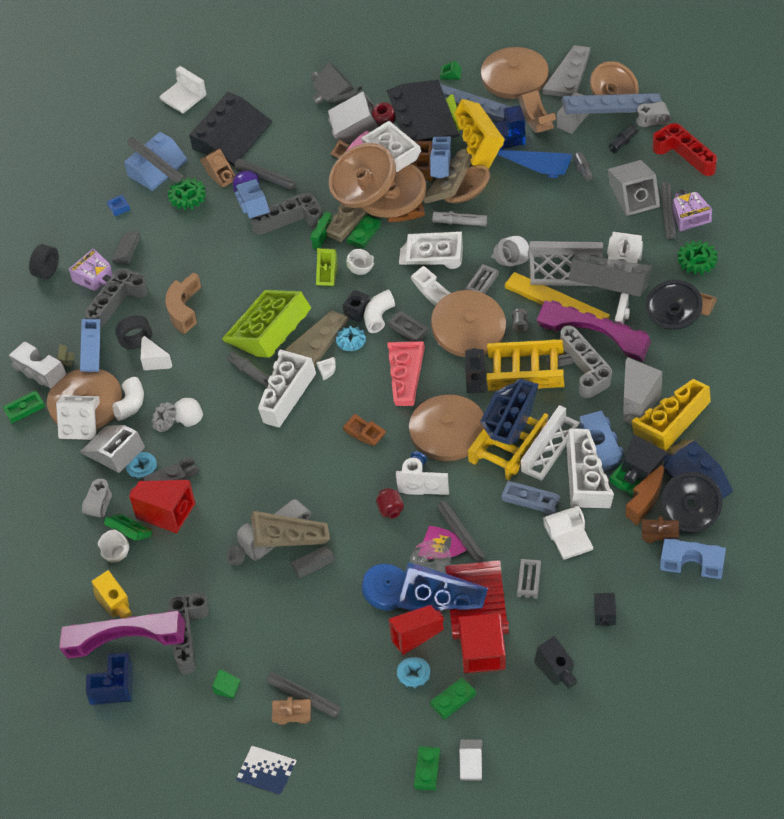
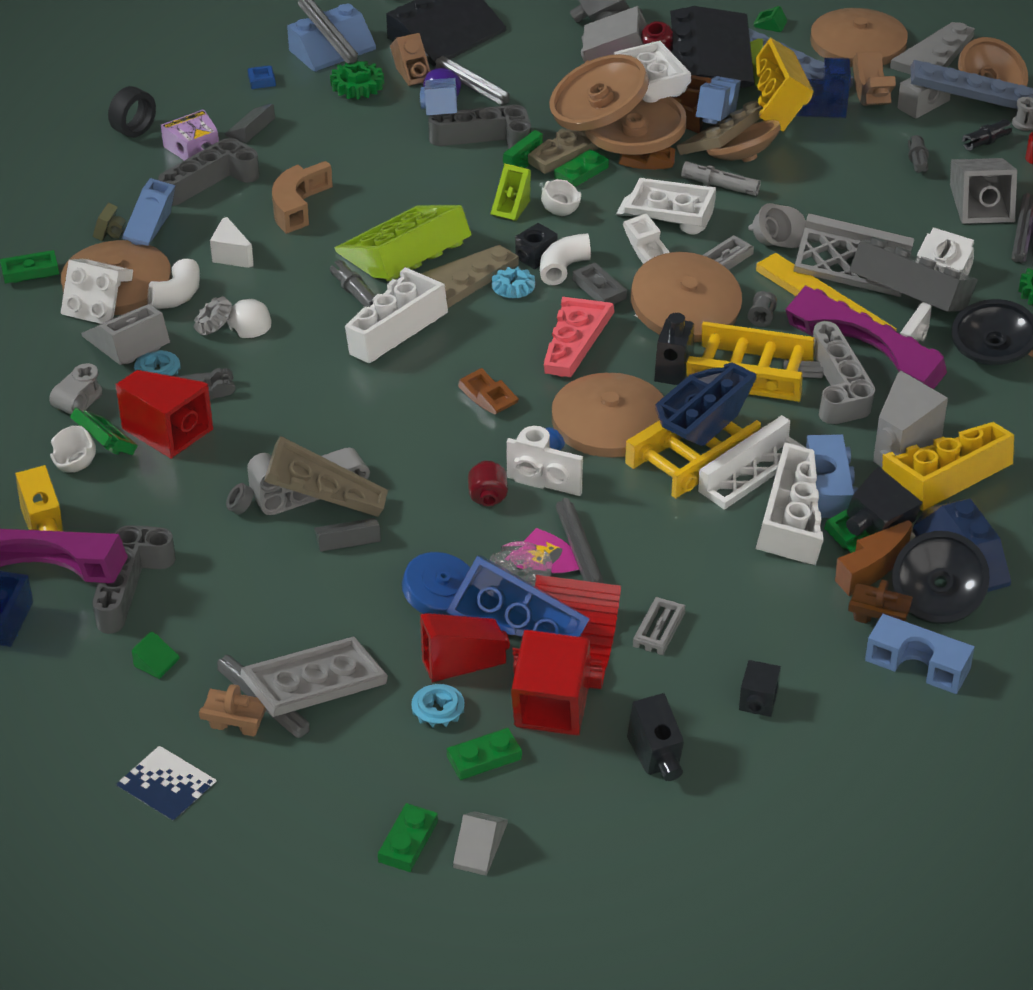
camera: 10 degrees right, 10 degrees down
(28, 361) = (73, 228): light grey arch -> none
(131, 323) = (209, 194): black tyre -> none
(326, 367) = (466, 309): white tile -> none
(331, 673) = (313, 676): none -> light grey tile
(530, 497) = (699, 523): sand blue plate -> none
(541, 162) = (867, 136): blue wedge -> none
(568, 532) = (739, 577): white piece -> none

